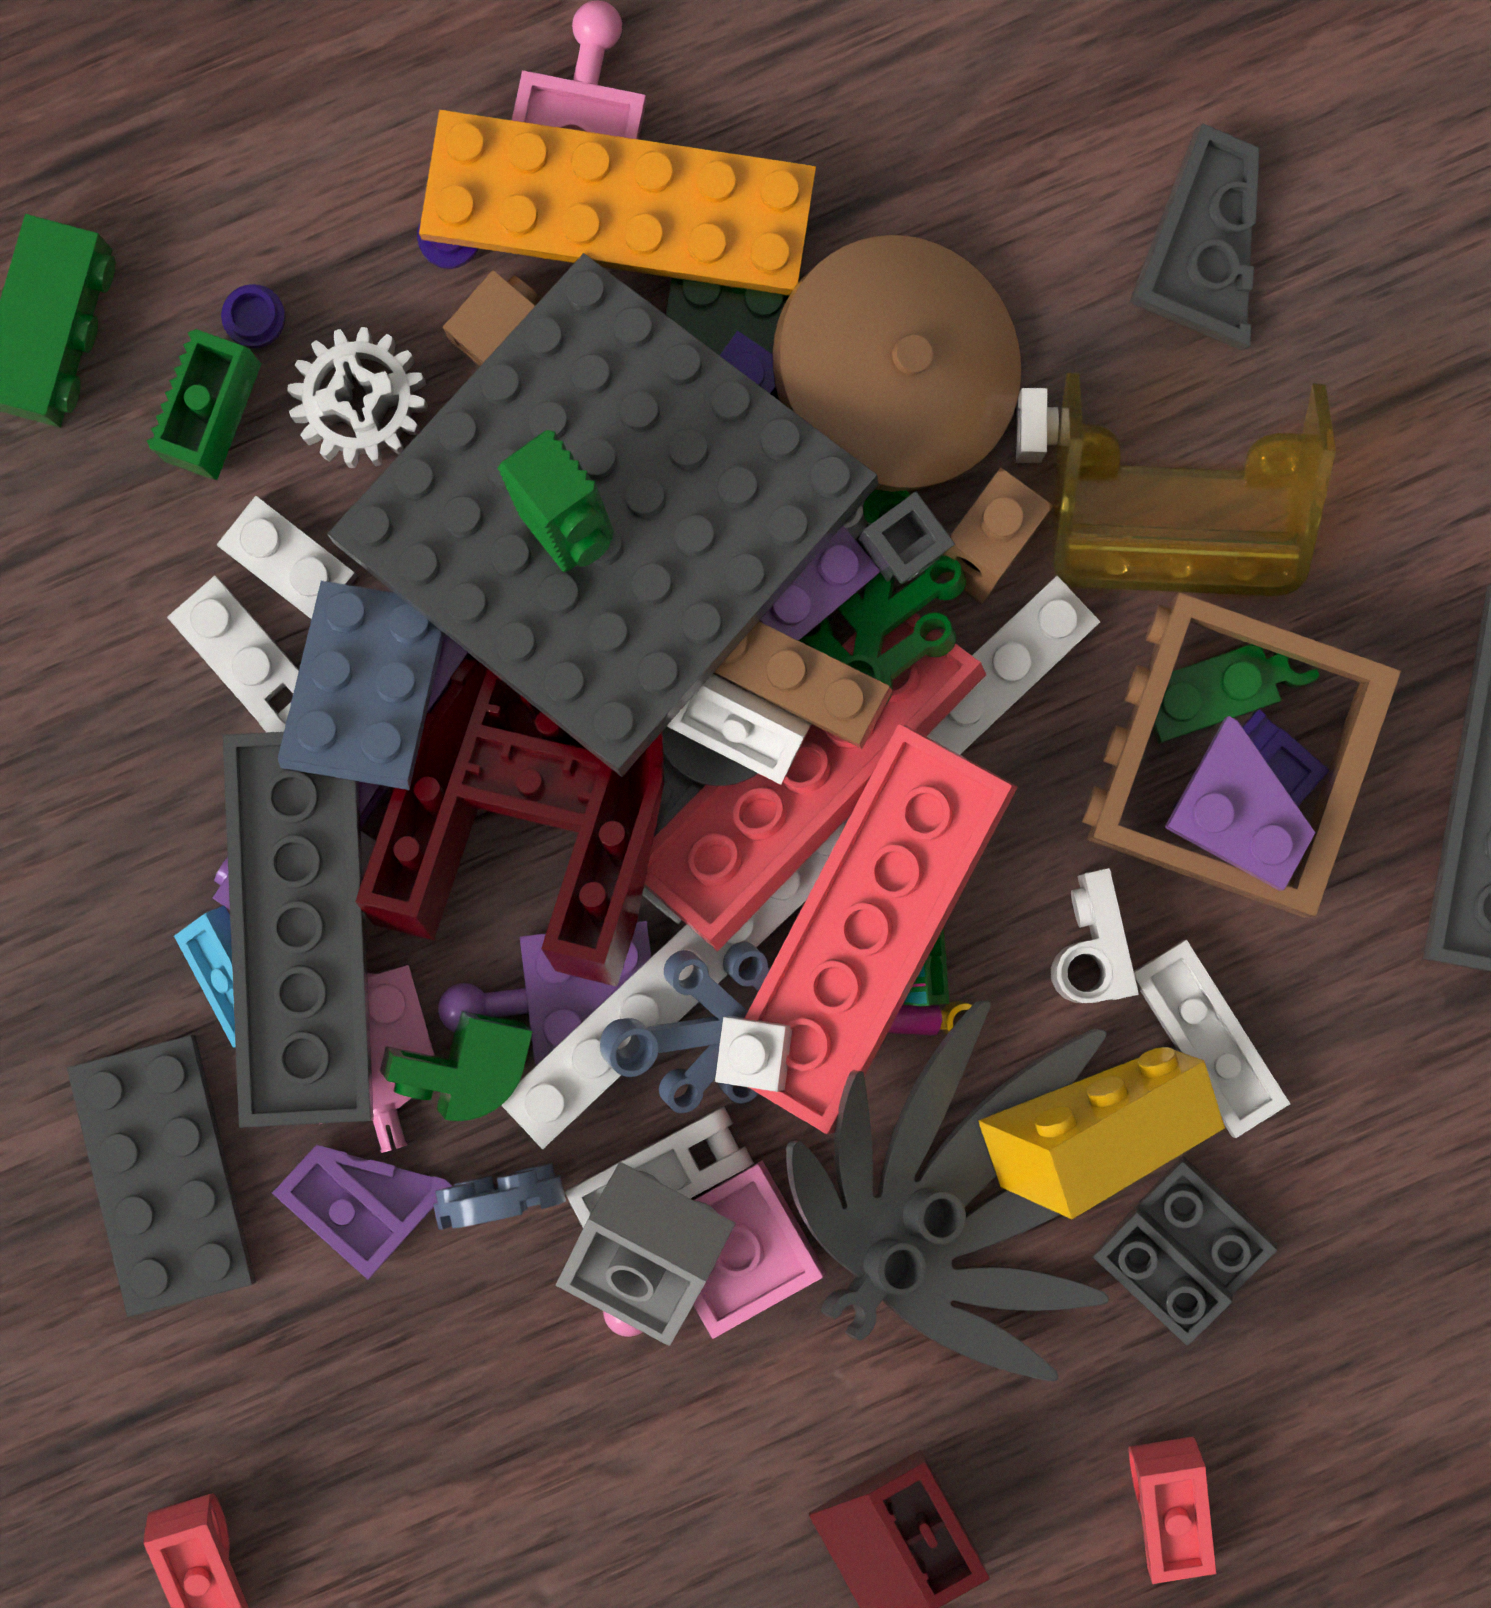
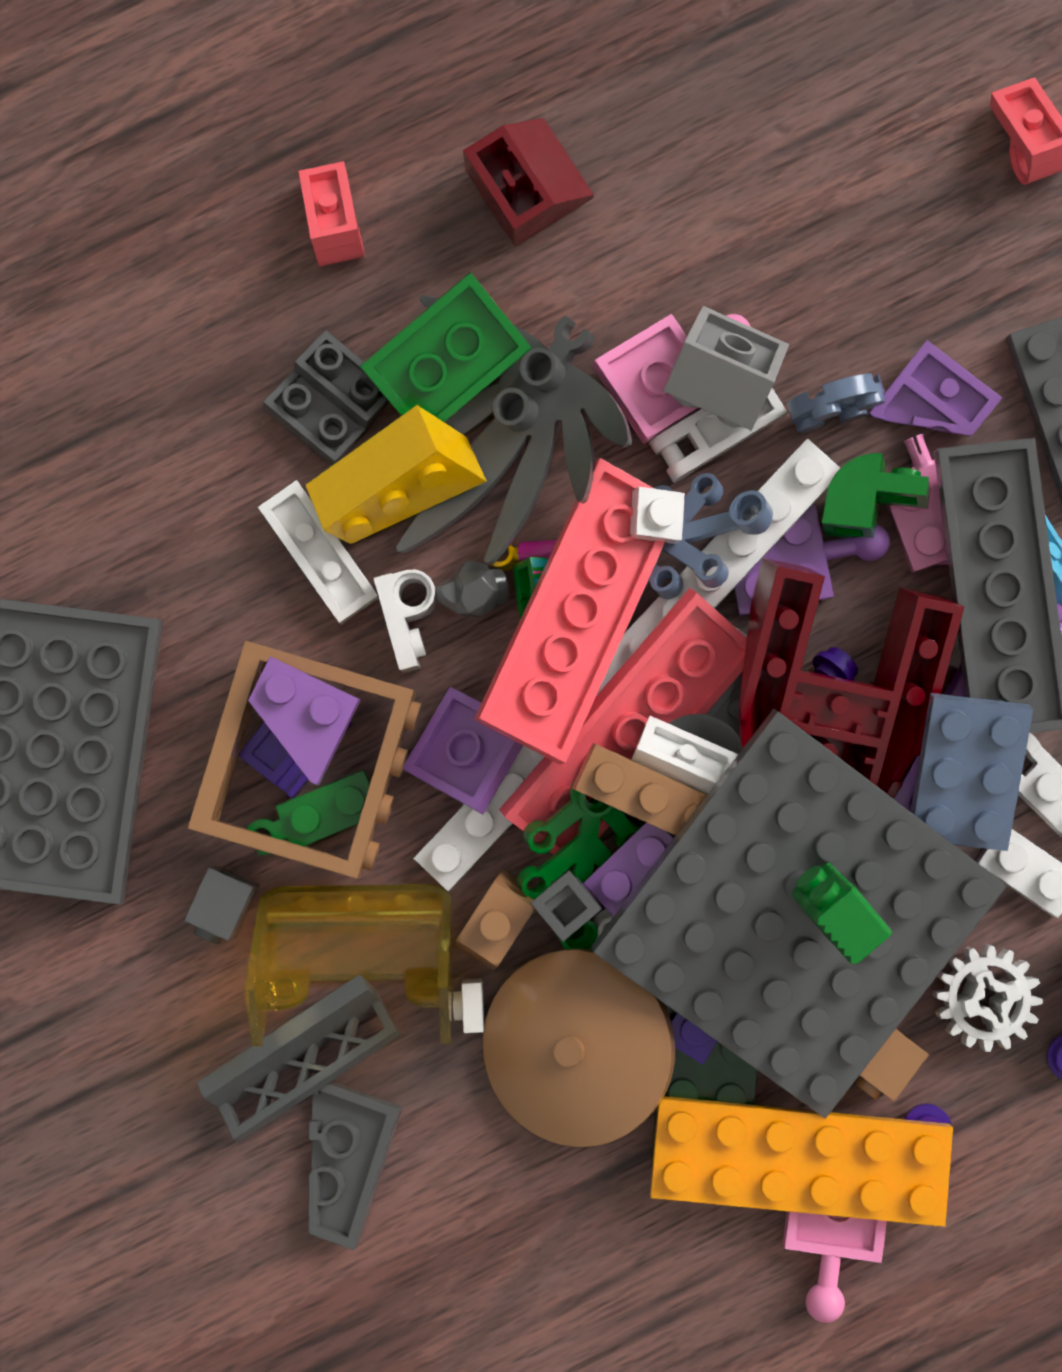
camera: 175 degrees right, 0 degrees up
(524, 841) = (835, 663): none -> dark purple plate
(1004, 973) = (473, 590): none -> dark grey rock
(1025, 1297) = (447, 352): none -> green plate
(1036, 747) = (462, 754): none -> medium lavender plate
(1271, 390) = (290, 1044): none -> dark grey fence
(1358, 574) = (221, 905): none -> dark grey brick

